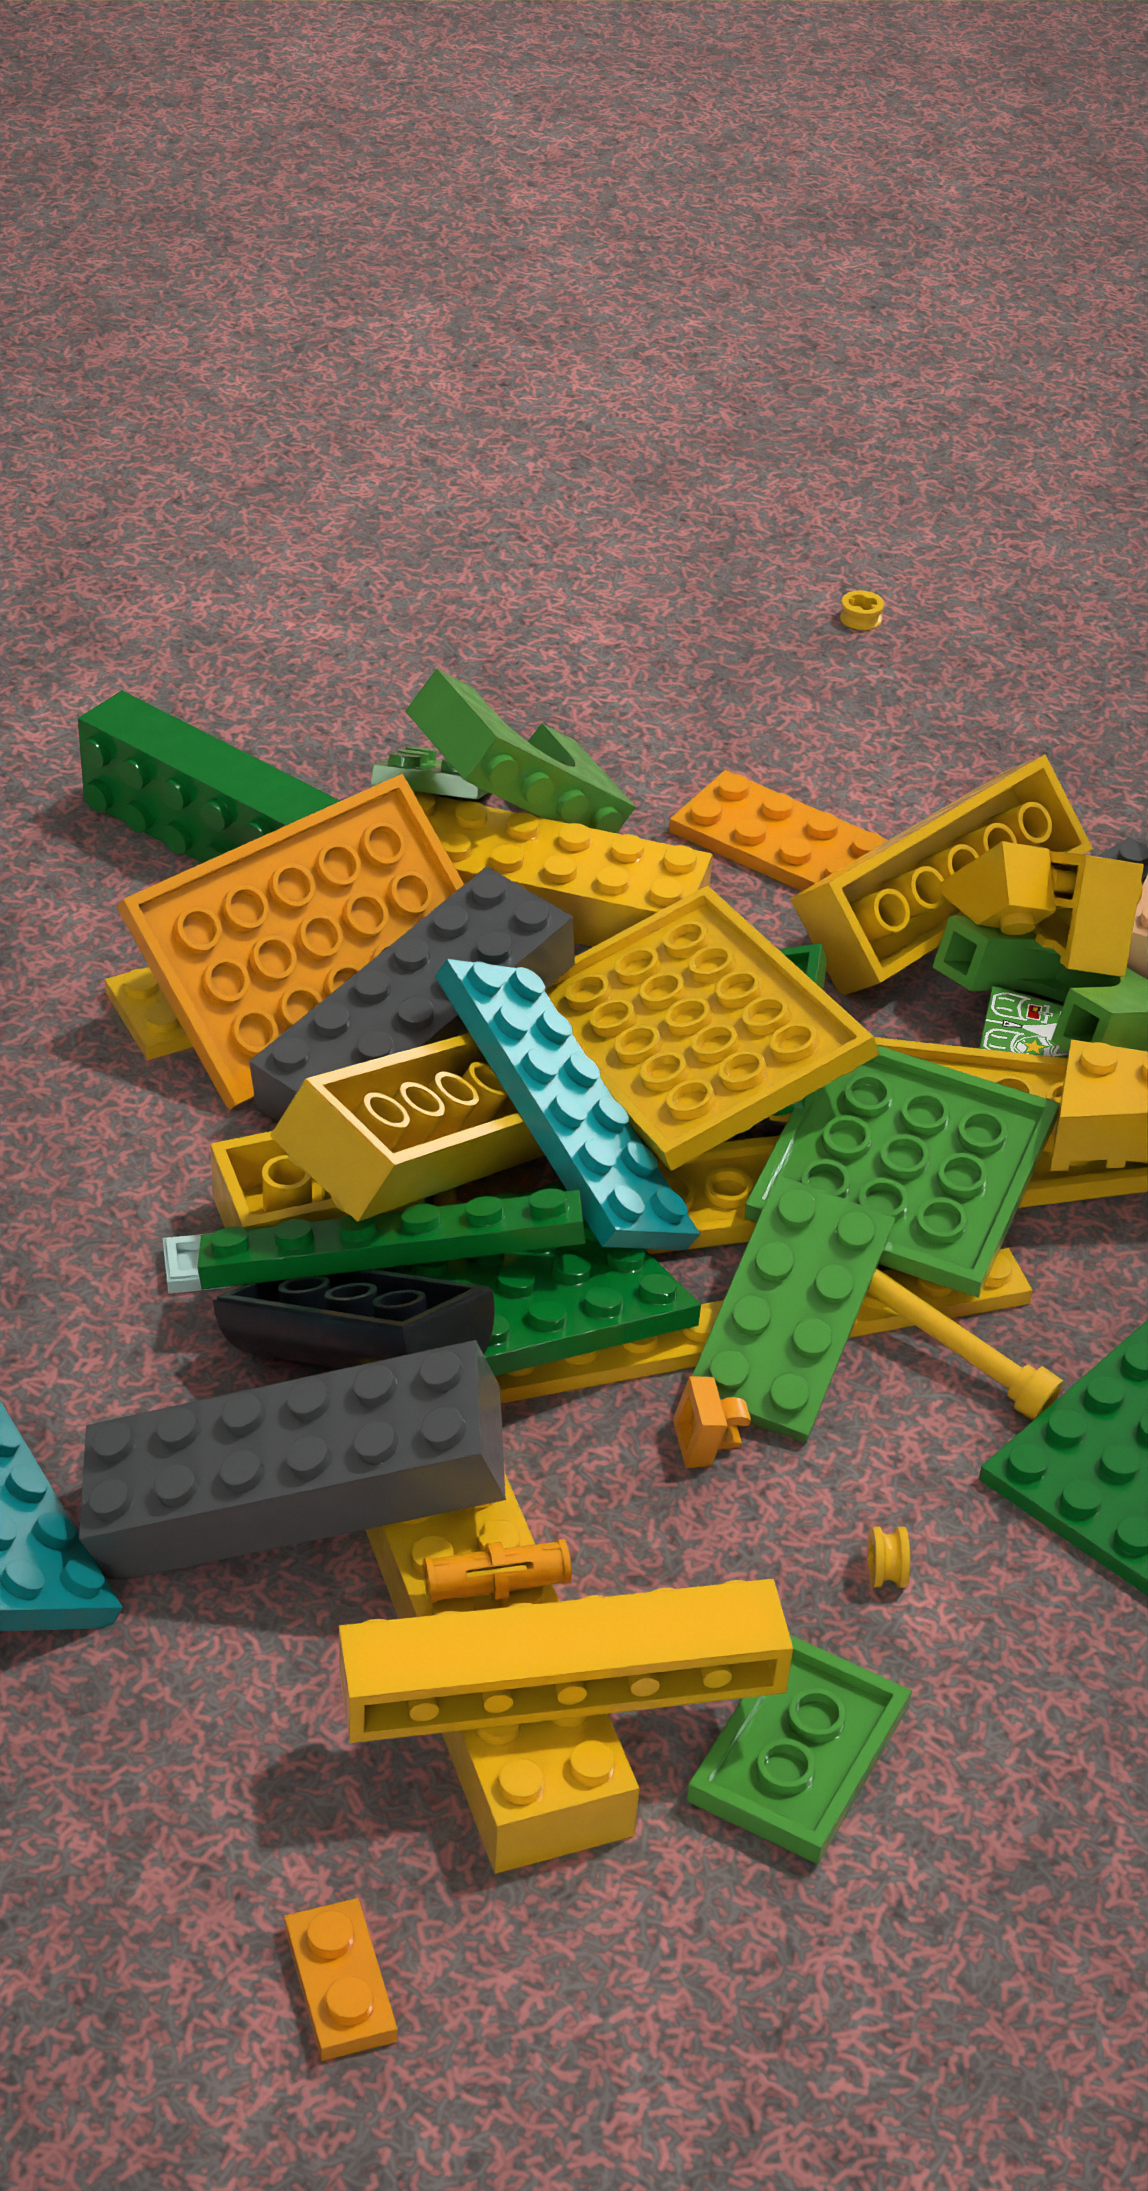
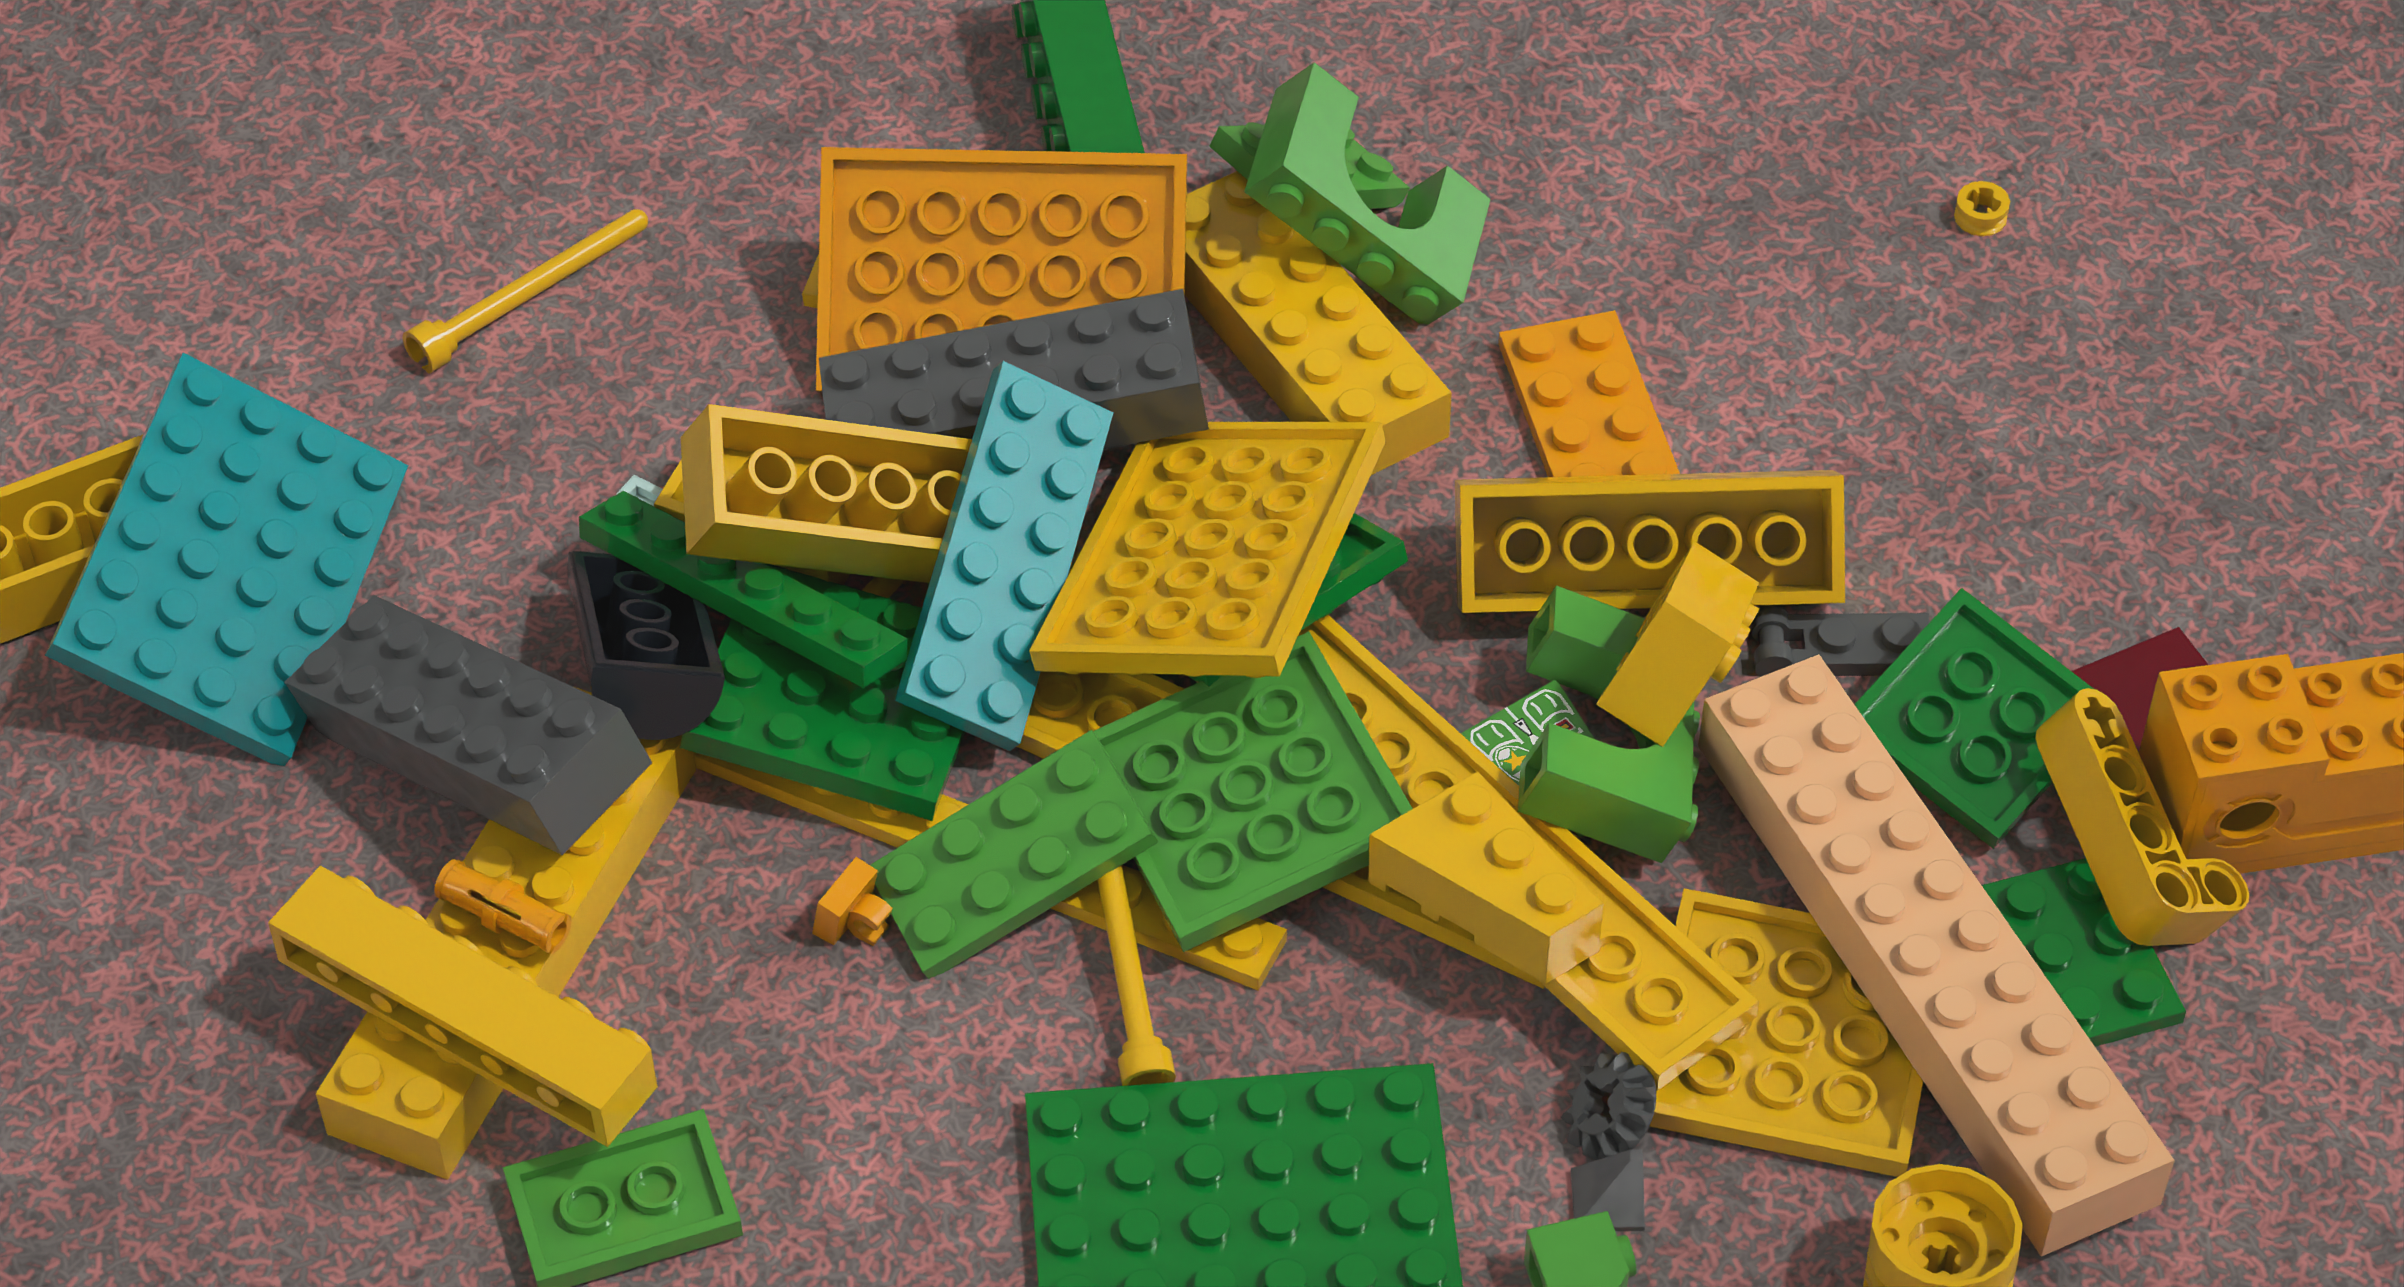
camera: 45 degrees right, 10 degrees up
(340, 1979) = (146, 1127): light orange plate -> none
(888, 1556) = (858, 1110): yellow bush -> none
(1005, 888) = (1621, 594): yellow slope -> none

